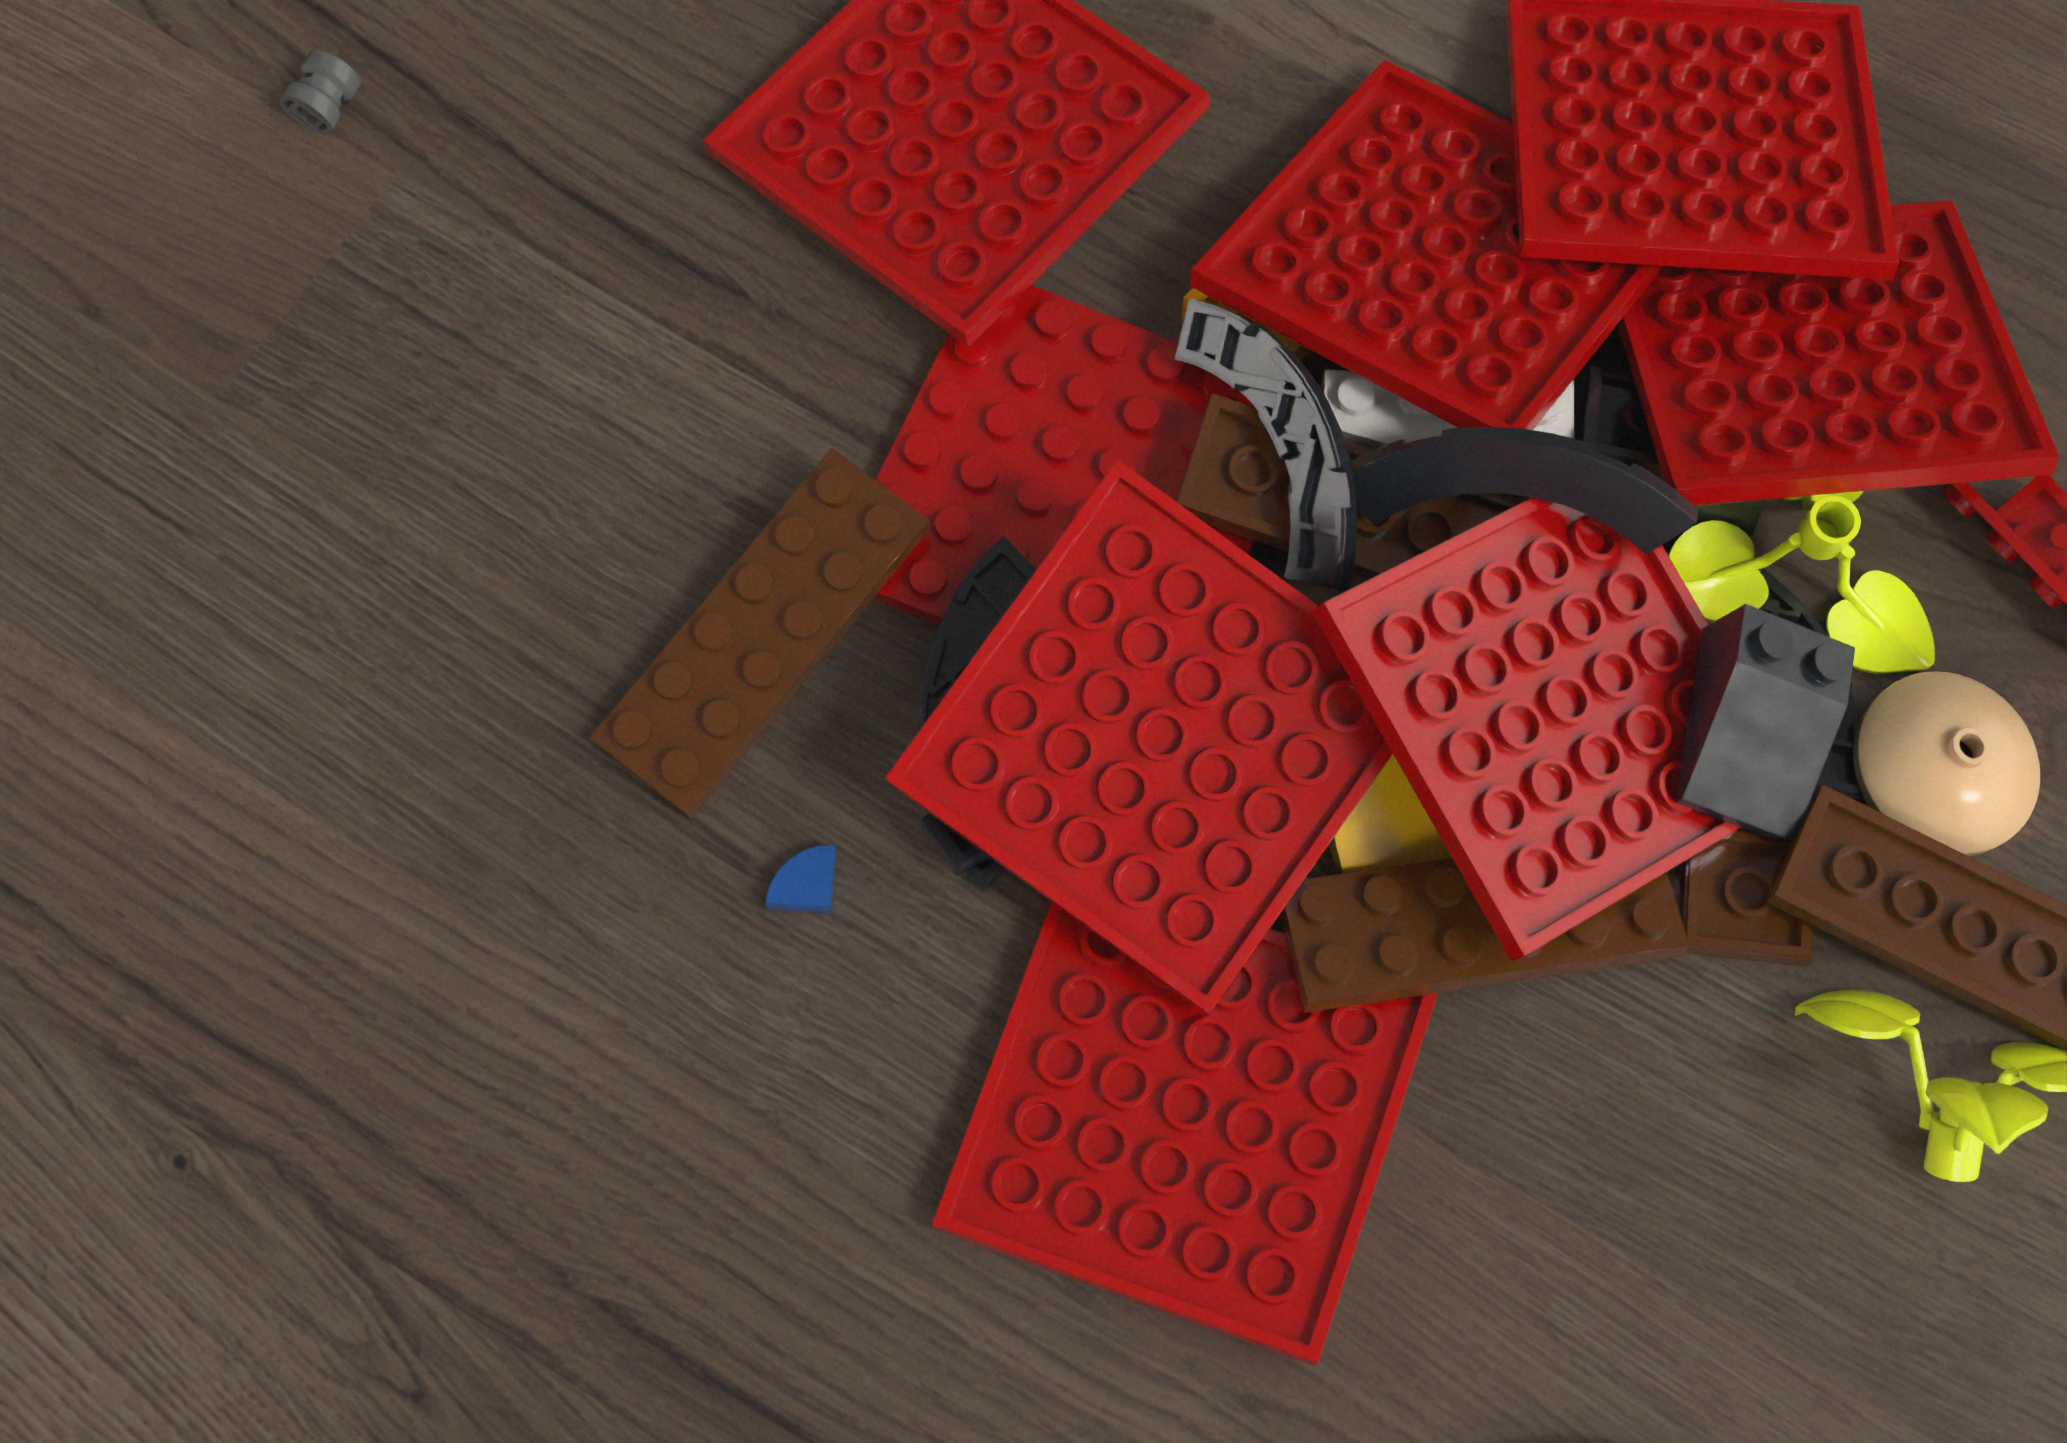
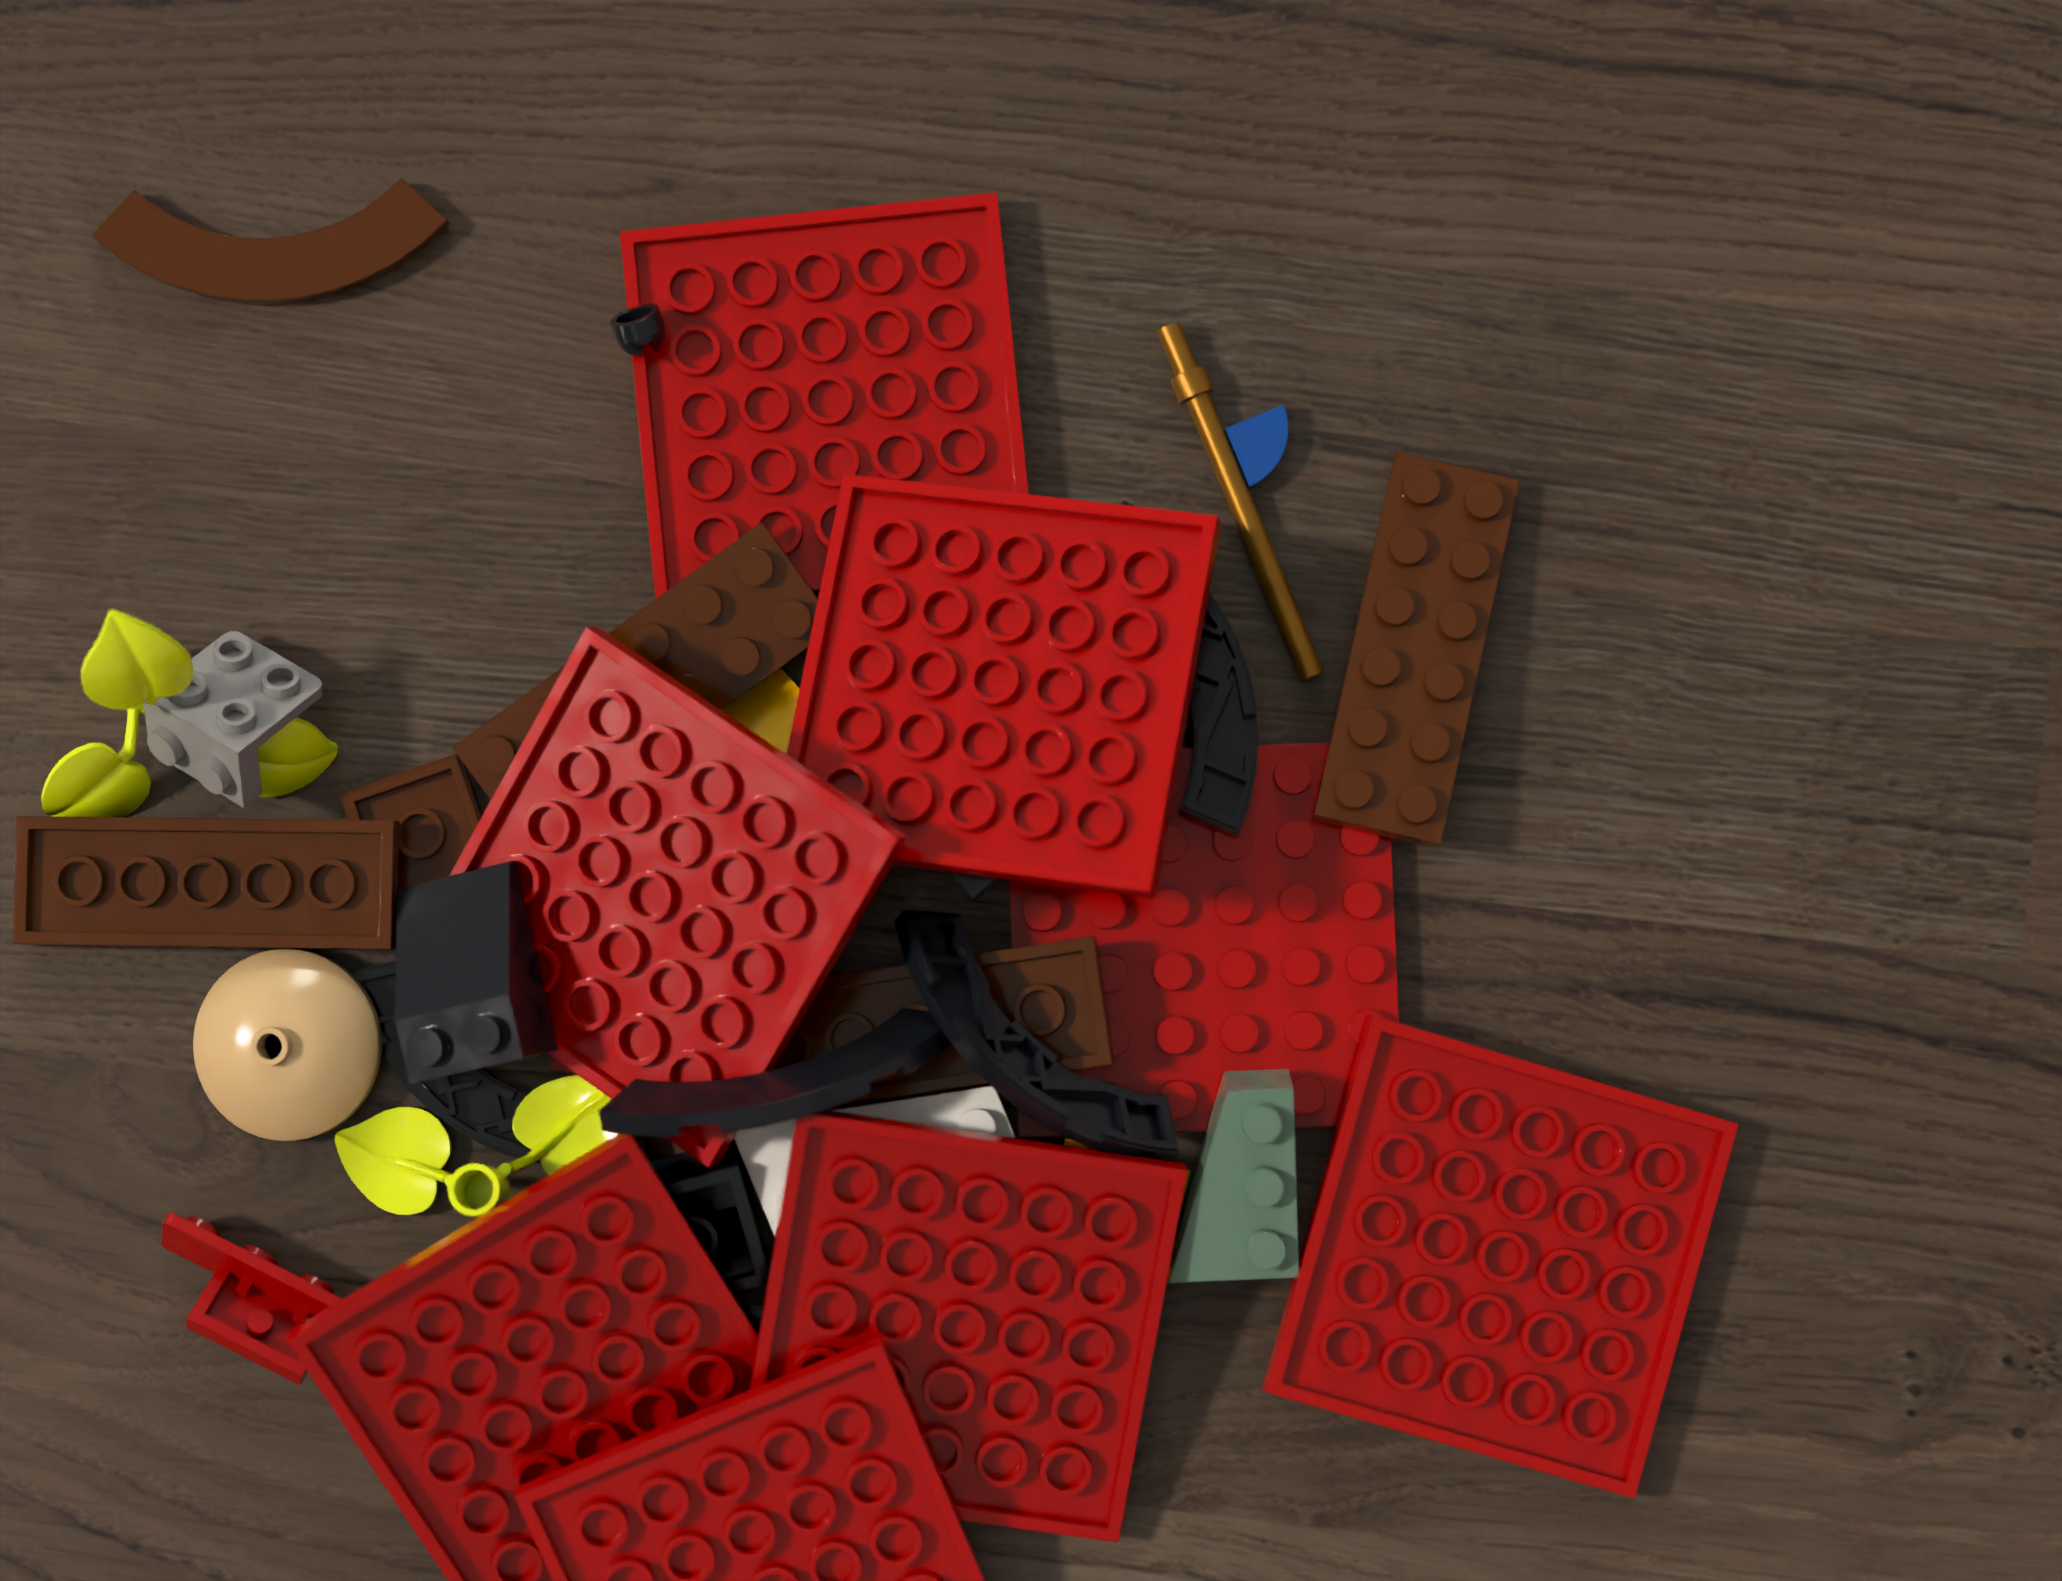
camera: 160 degrees right, 15 degrees up
(840, 958) = (1193, 388): none -> pearl gold bar
(1140, 263) = (1244, 1190): none -> sand green wedge
(1342, 1262) = (639, 327): none -> black hinge
(1879, 1061) = (228, 710): none -> light grey bracket

